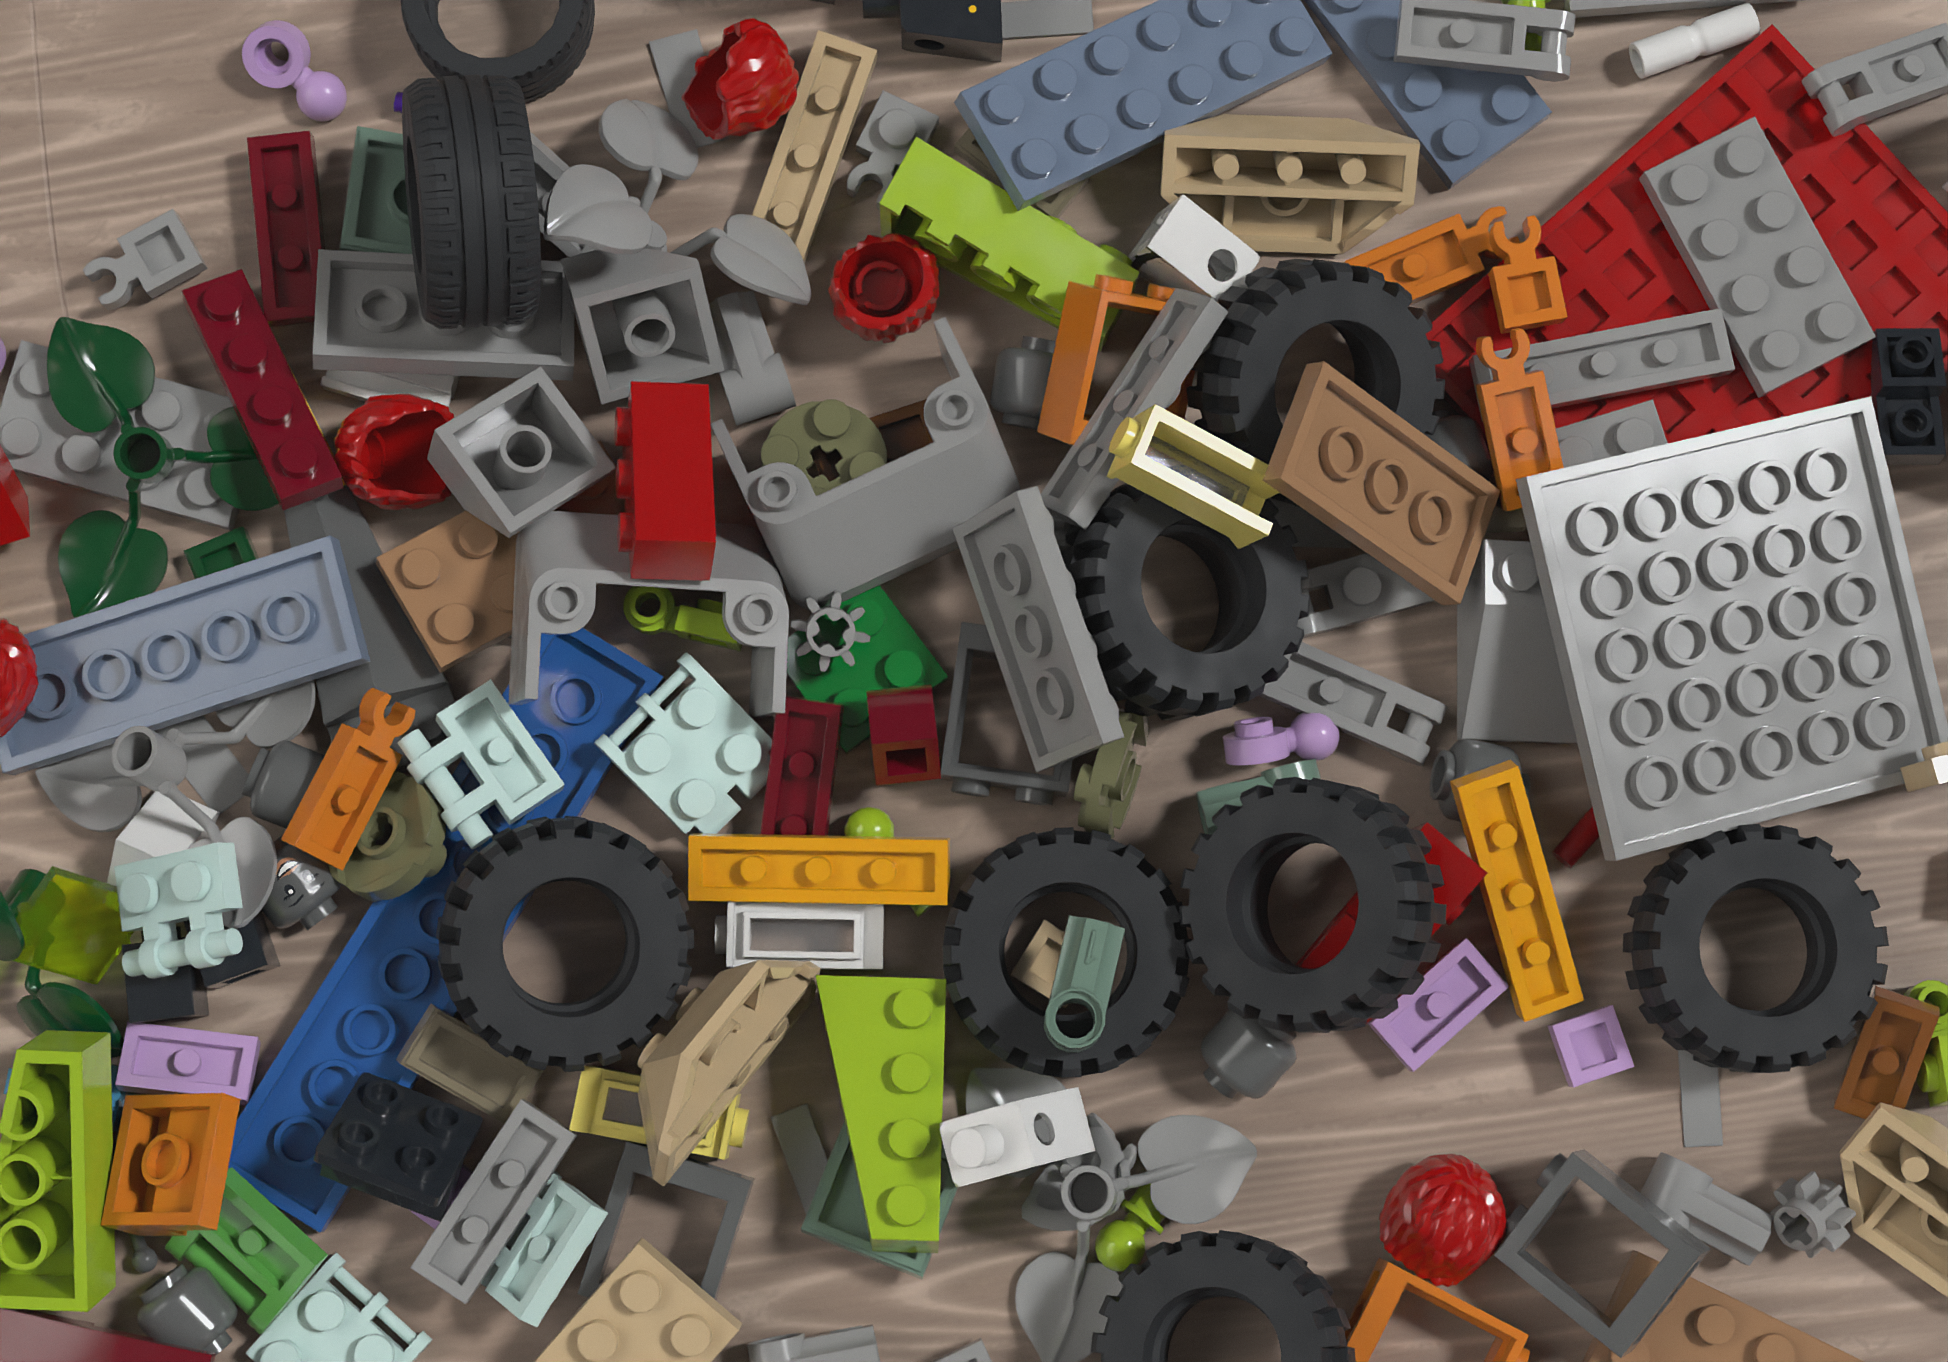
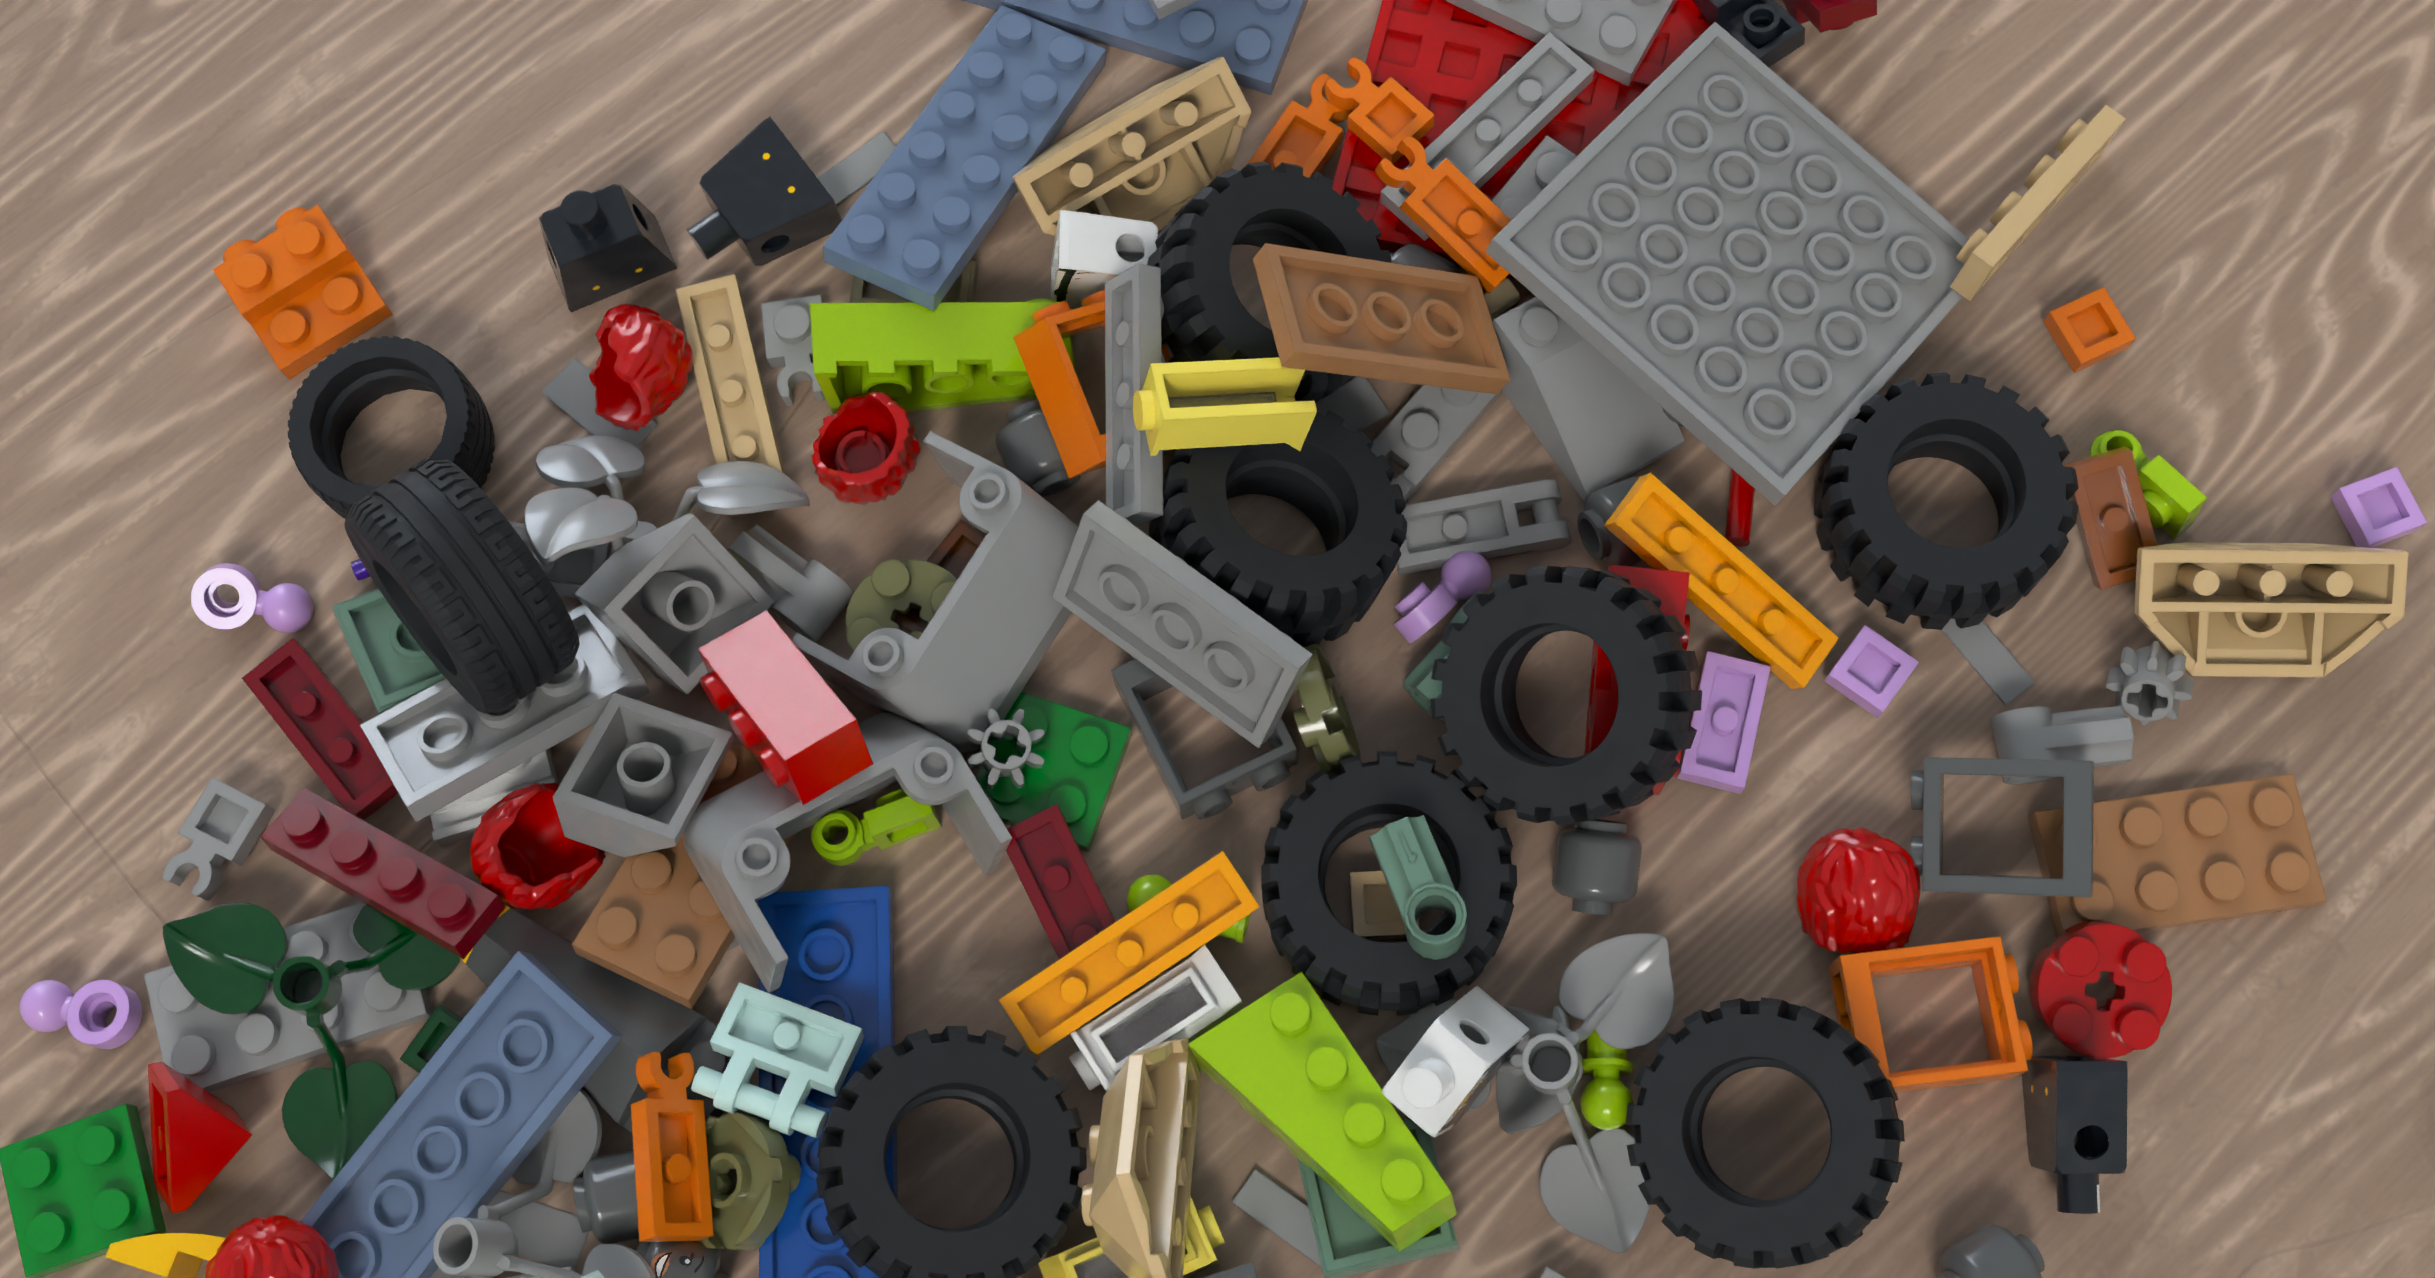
camera: 20 degrees left, 10 degrees down
(692, 751) = (954, 931): light aqua plate -> none
(903, 734) = (1128, 794): dark red brick -> none

